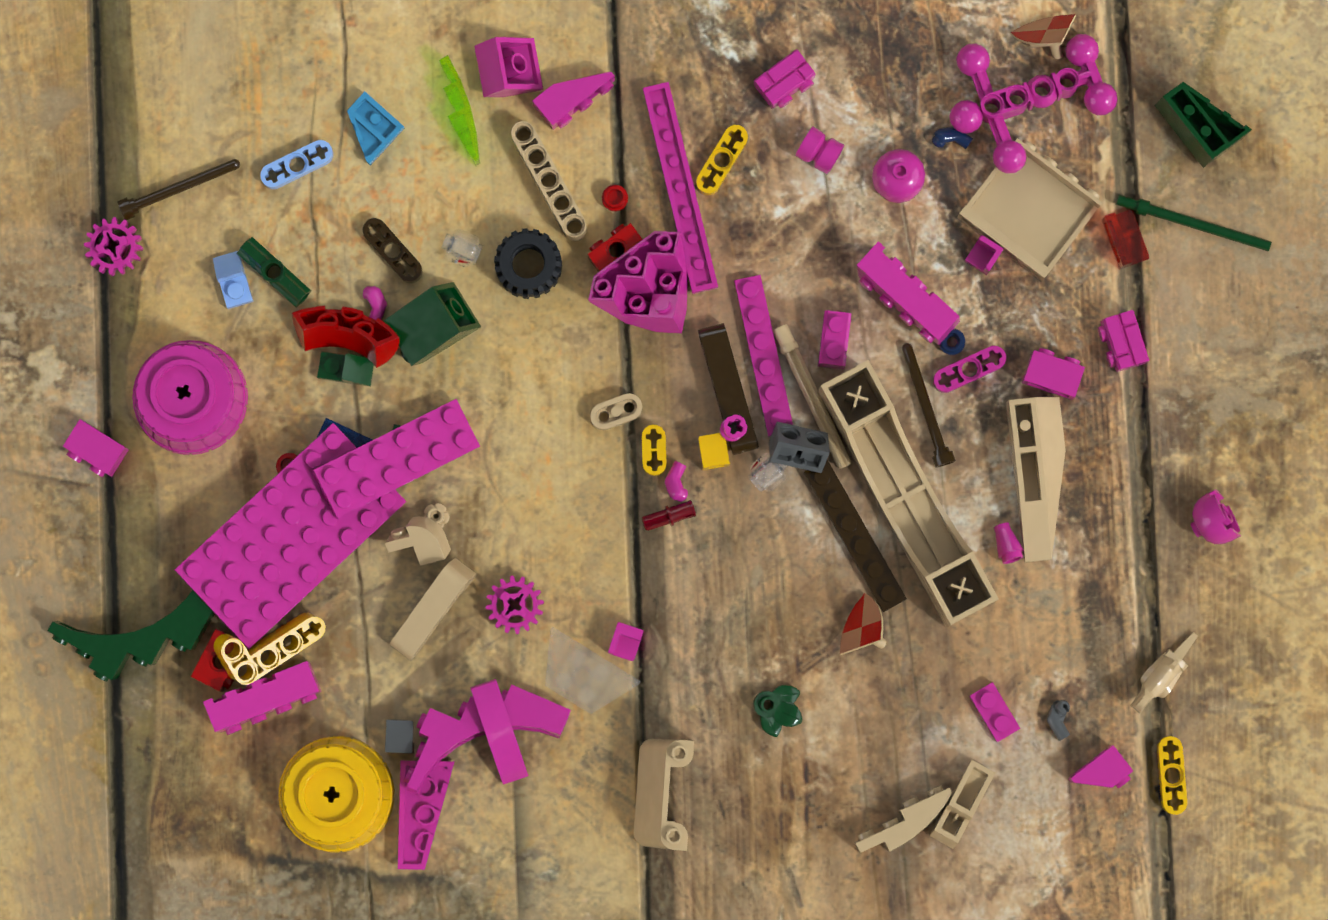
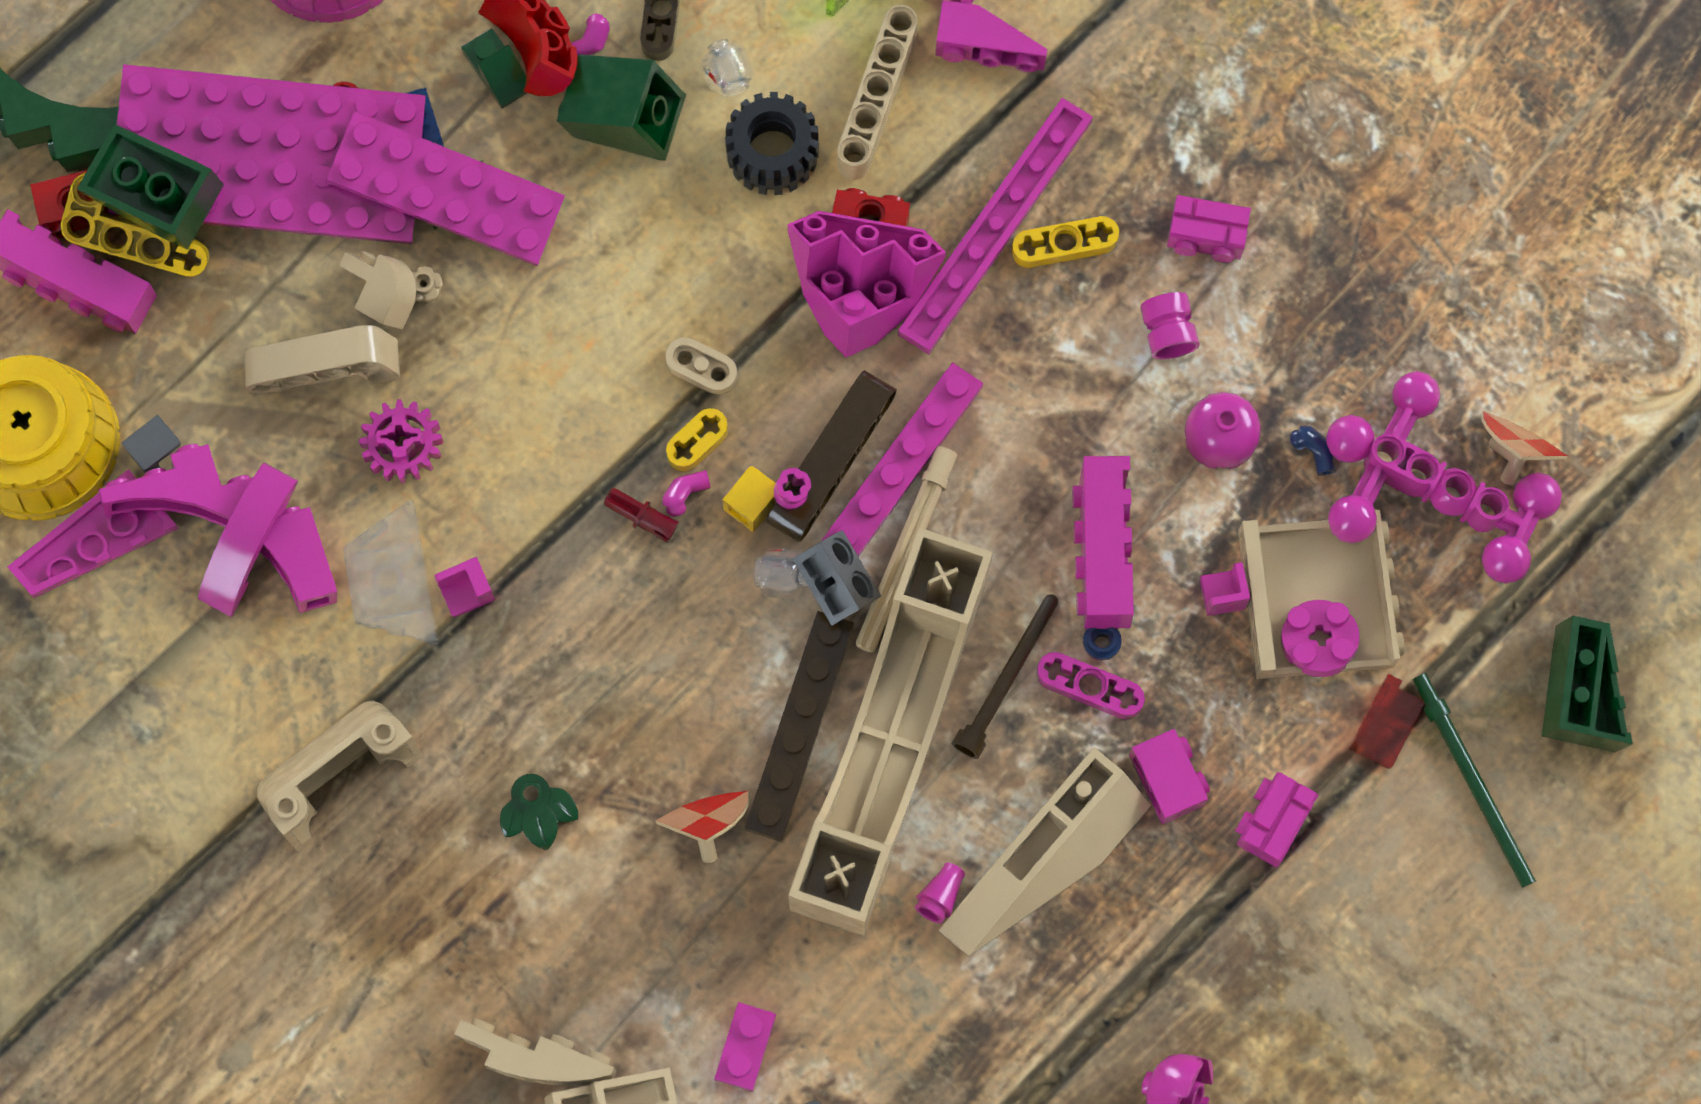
camera: 45 degrees right, 10 degrees down
(261, 615) = (151, 186): none -> dark green slope
(614, 198) = (923, 172): red plate -> none
(834, 339) = (988, 513): dark pink brick -> none
(1049, 216) = (1332, 620): none -> dark pink plate

